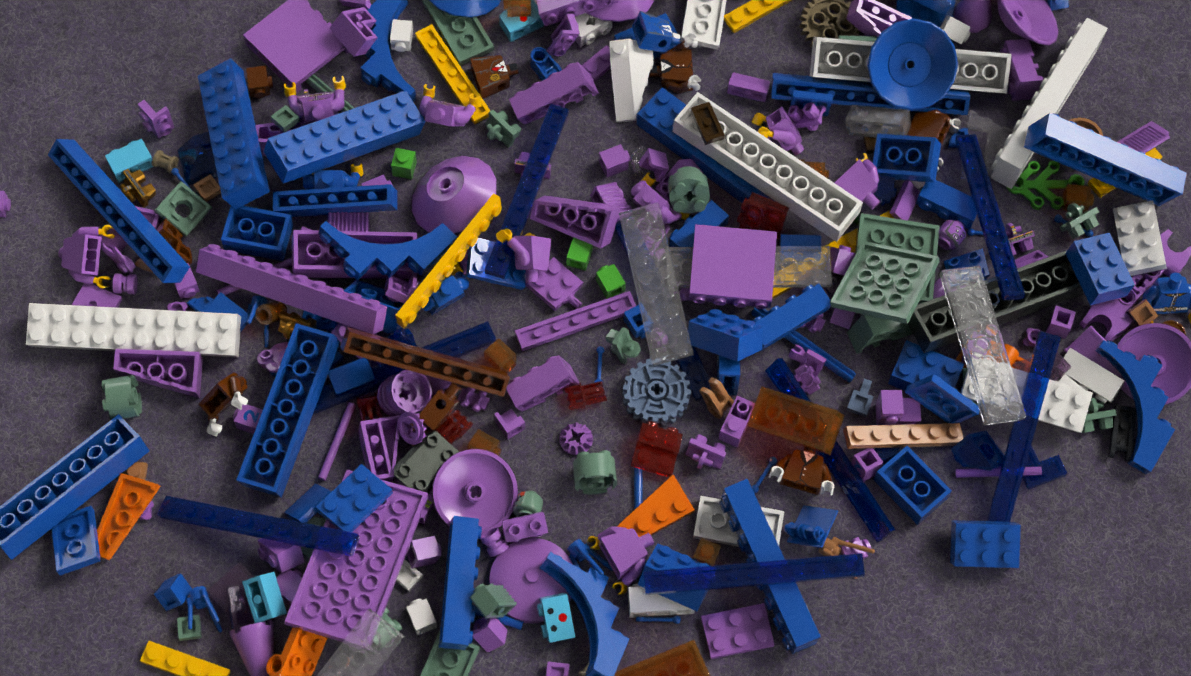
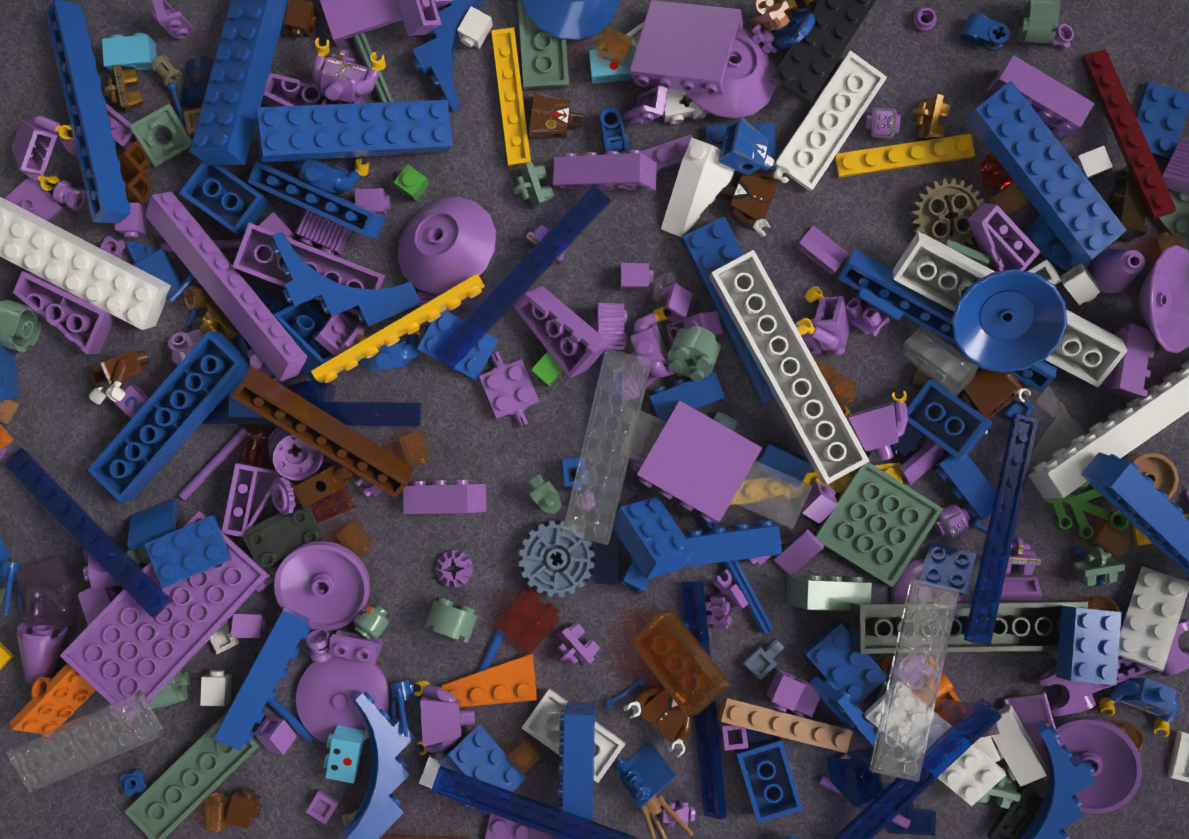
camera: 30 degrees right, 20 degrees up
(124, 263) = (73, 170): medium lavender plate -> none
(264, 597) = (61, 611): medium azure brick -> none
(285, 118) = (301, 80): sand green plate -> none
(444, 112) = (478, 143): medium lavender torso -> none
(492, 600) = (286, 713): sand green brick -> none
(509, 423) = (393, 522): medium lavender panel -> none
(530, 252) = (491, 350): medium lavender torso -> none
(574, 321) = (511, 441): medium lavender plate -> none
(588, 393) = (480, 528): clear red arm -> none
(600, 350) = (505, 517): blue hinge -> none
(610, 281) = (566, 412): bright green brick -> none
(707, 123) = (744, 295): dark brown plate -> none
(717, 401) = (614, 598): medium nougat piece -> none
(736, 421) = (623, 628): medium lavender slope -> none
(762, 214) = (760, 412): clear red plate -> none
(885, 282) = (848, 560): sand green plate -> none
(1028, 341) = (986, 673): medium lavender plate -> none
(1060, 322) = (1015, 672): medium lavender brick -> none
(1143, 313) = (1108, 706): medium nougat plate -> none

